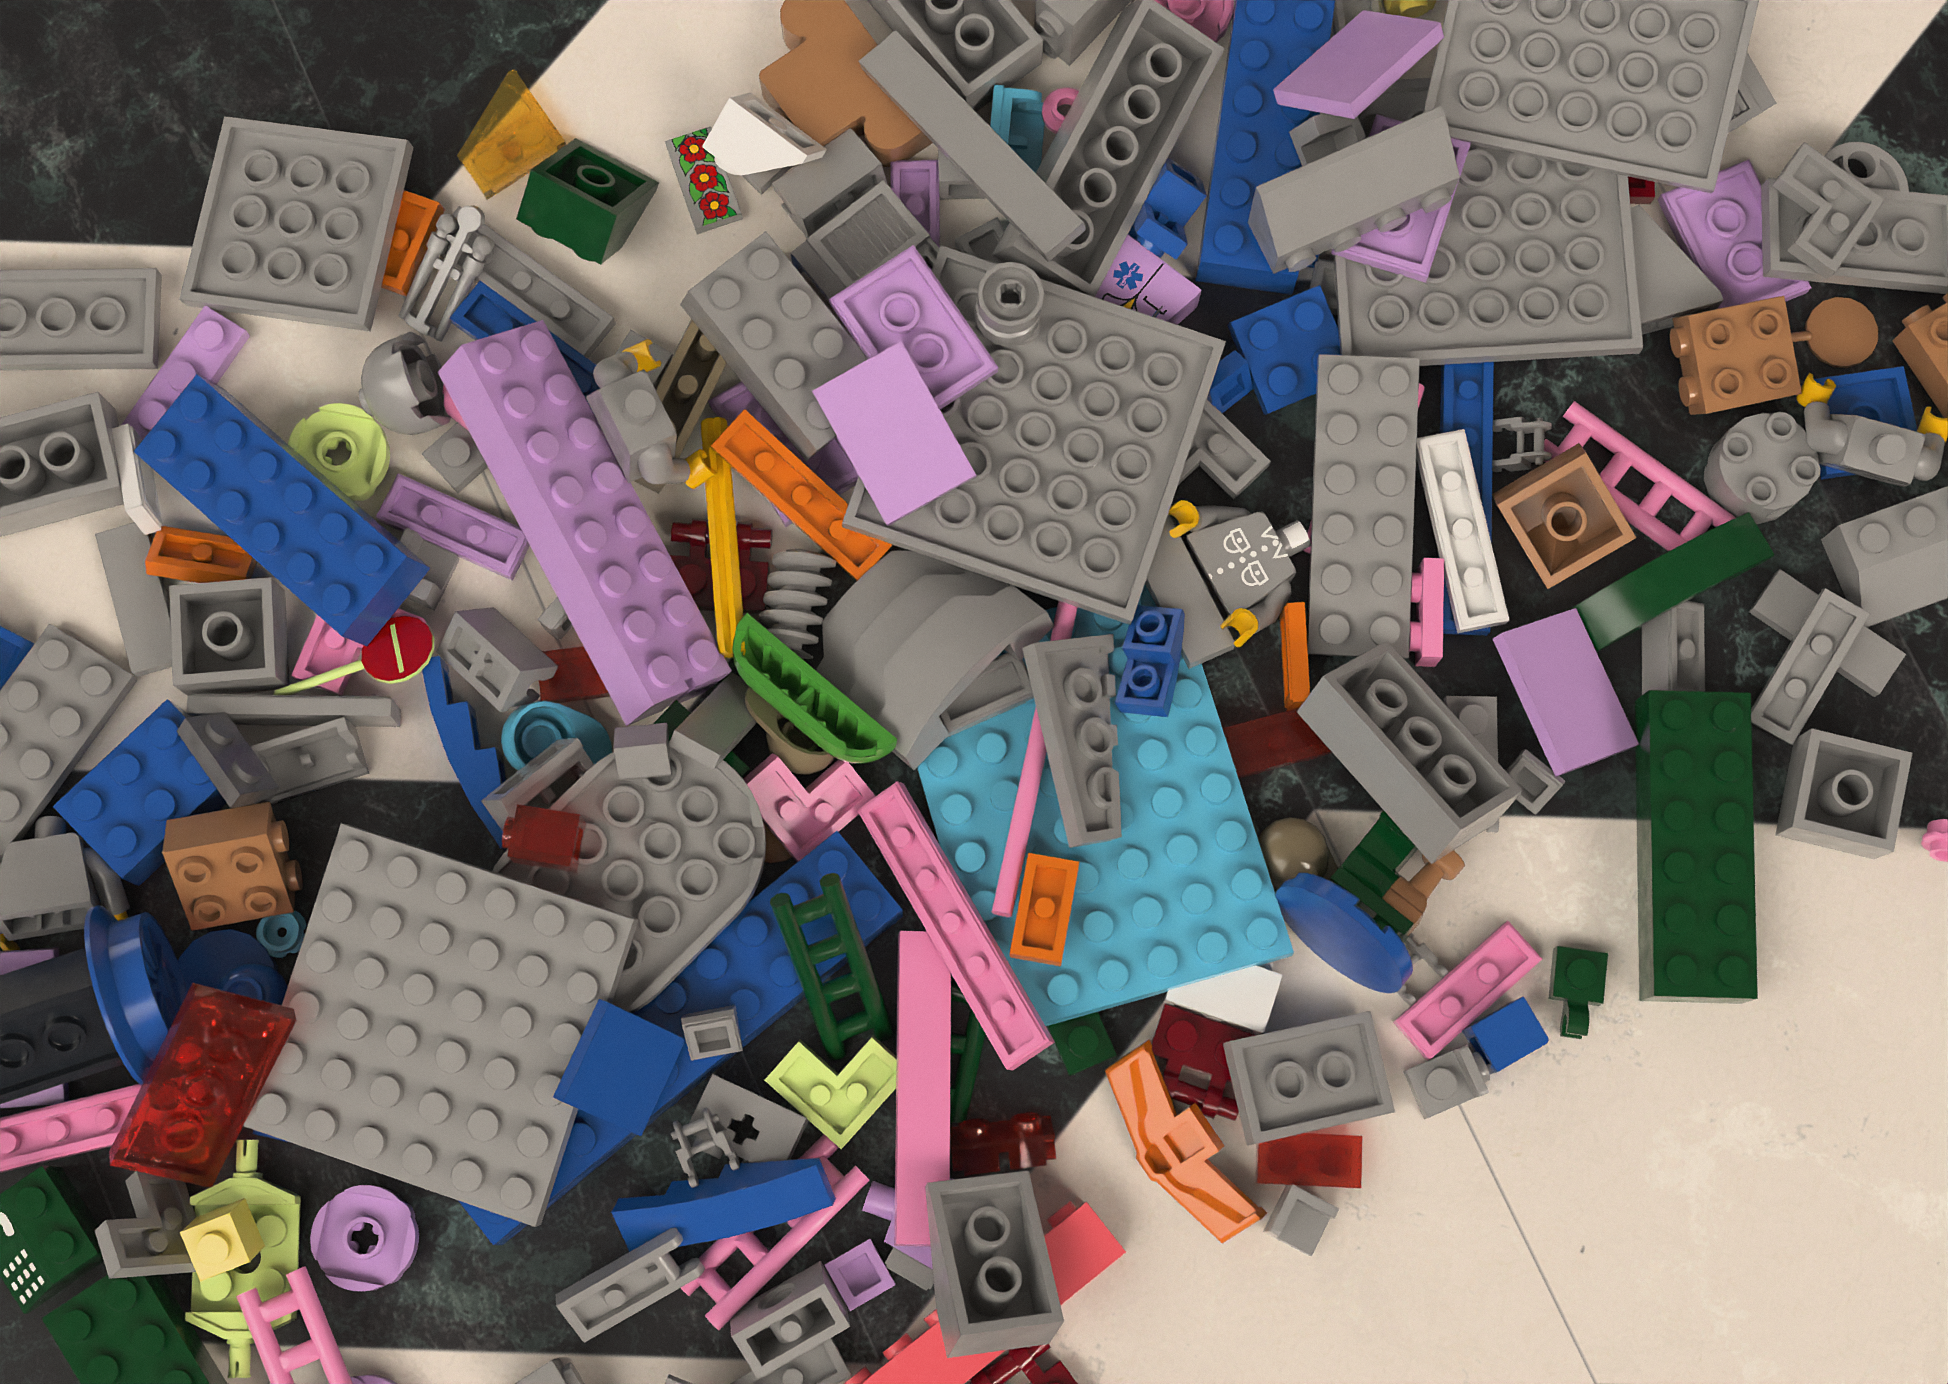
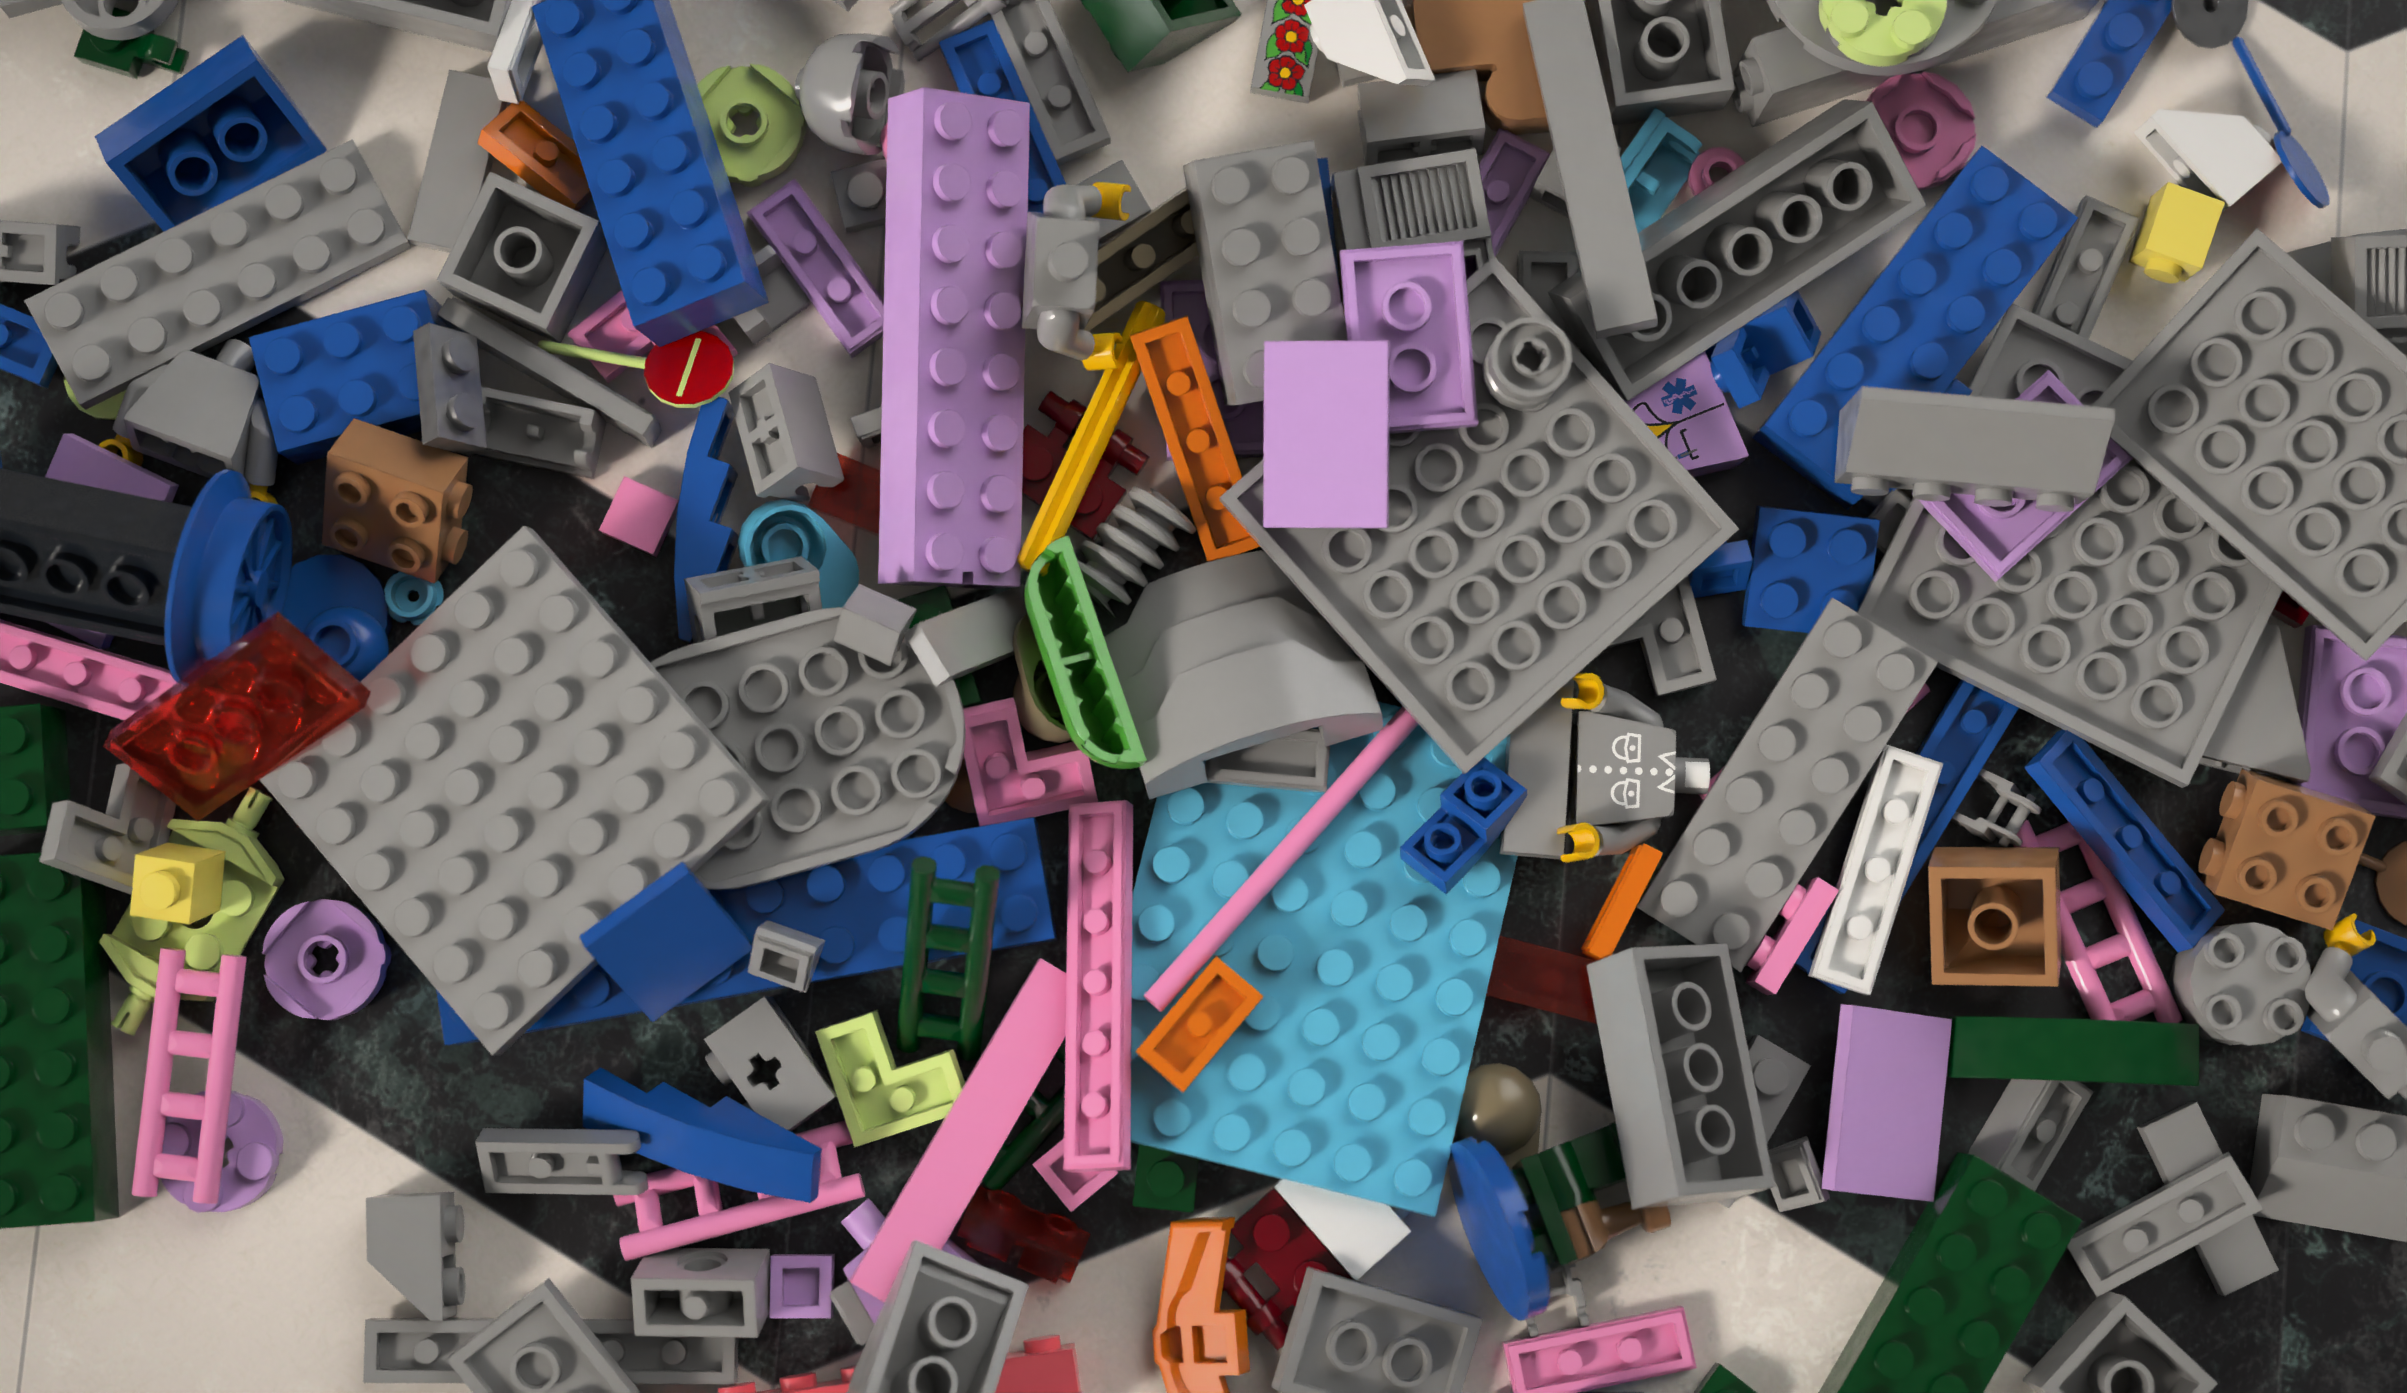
camera: 30 degrees right, 5 degrees up
(420, 780) = (640, 516): none -> bright pink tile
(544, 838) = (721, 660): clear red brick -> none
(718, 1138) = (731, 1068): light grey piece -> none
(1014, 1084) = (1070, 1187): none -> bright pink plate
(1073, 709) = (1350, 832): light grey wing -> none
(1325, 135) = (1979, 368): light grey panel -> none
(1358, 64) = (2059, 306): lavender tile -> none
(1621, 412) = (2125, 839): none -> blue plate

